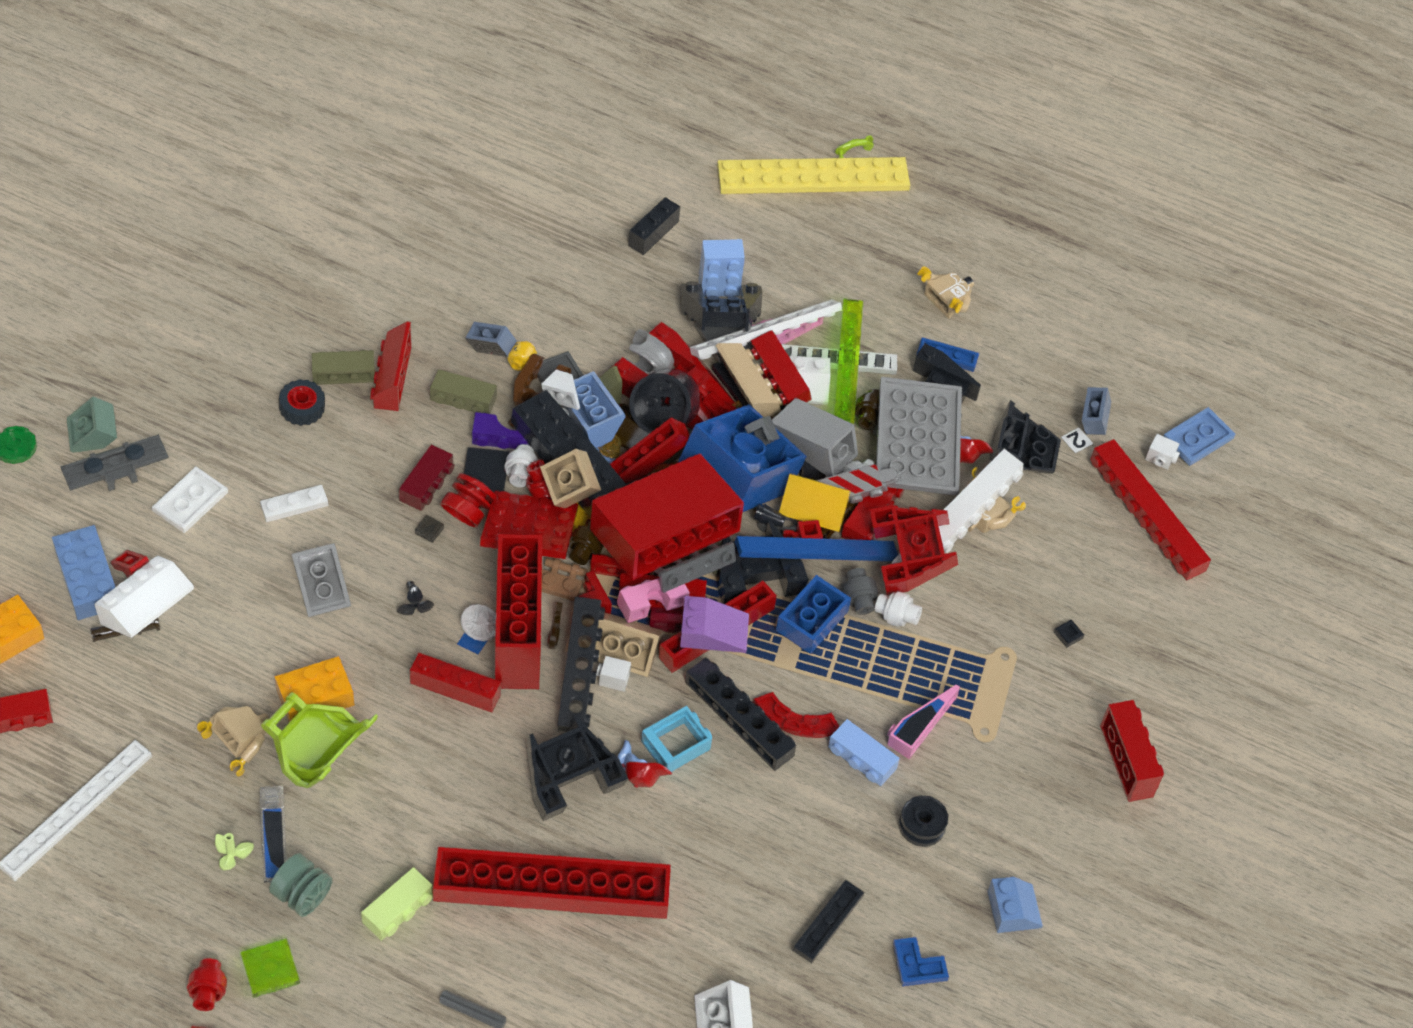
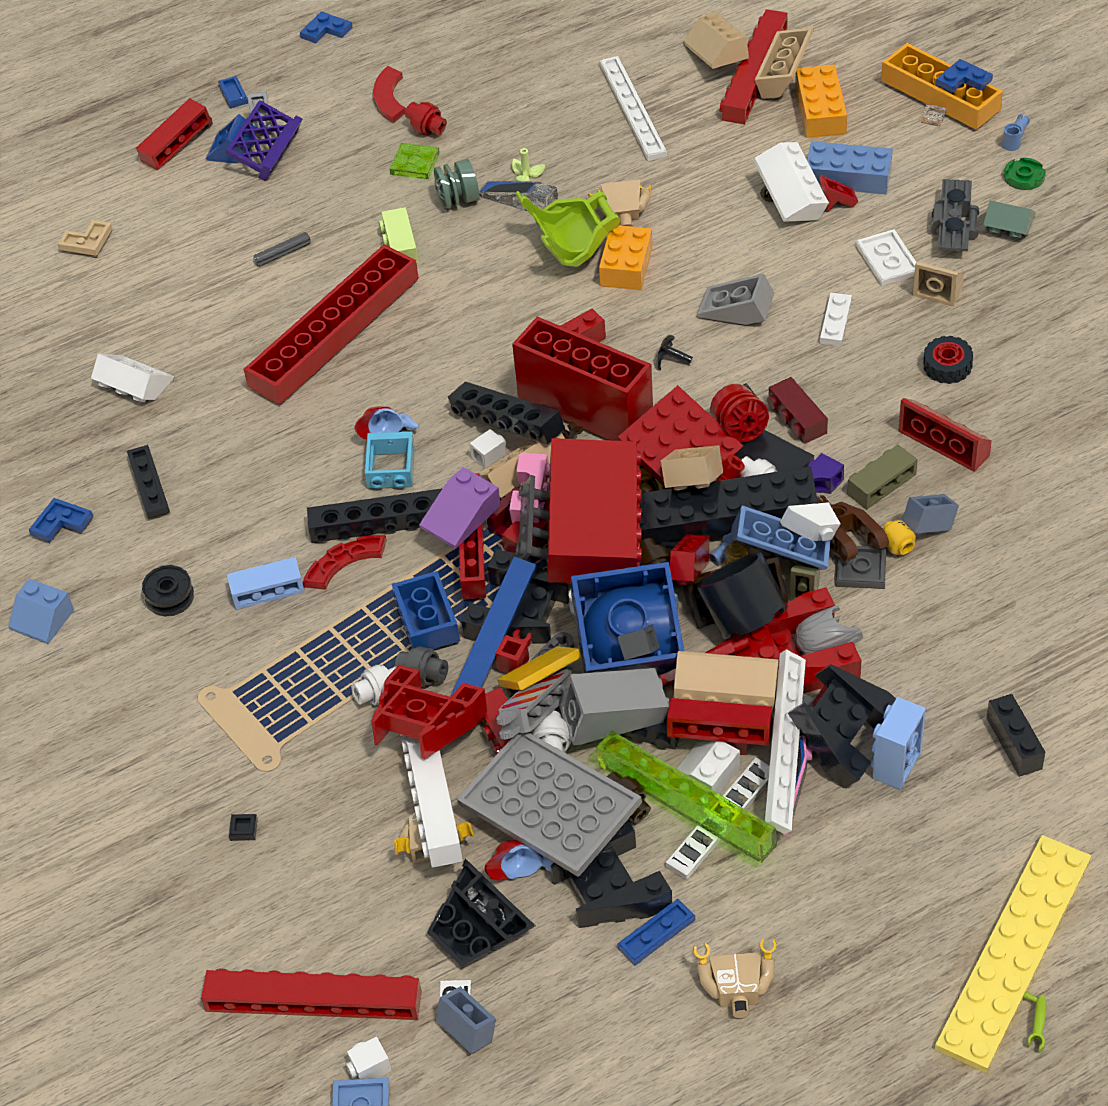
camera: 135 degrees right, 5 degrees down
(211, 440) = (937, 284): none -> tan slope
(343, 367) = (975, 399): olive brick -> none
(568, 760) = (422, 369): black wedge -> none
(765, 513) = (558, 633): black cone -> none
(915, 727) = (254, 632): slope -> none
(1131, 750) = (78, 778): red brick -> none

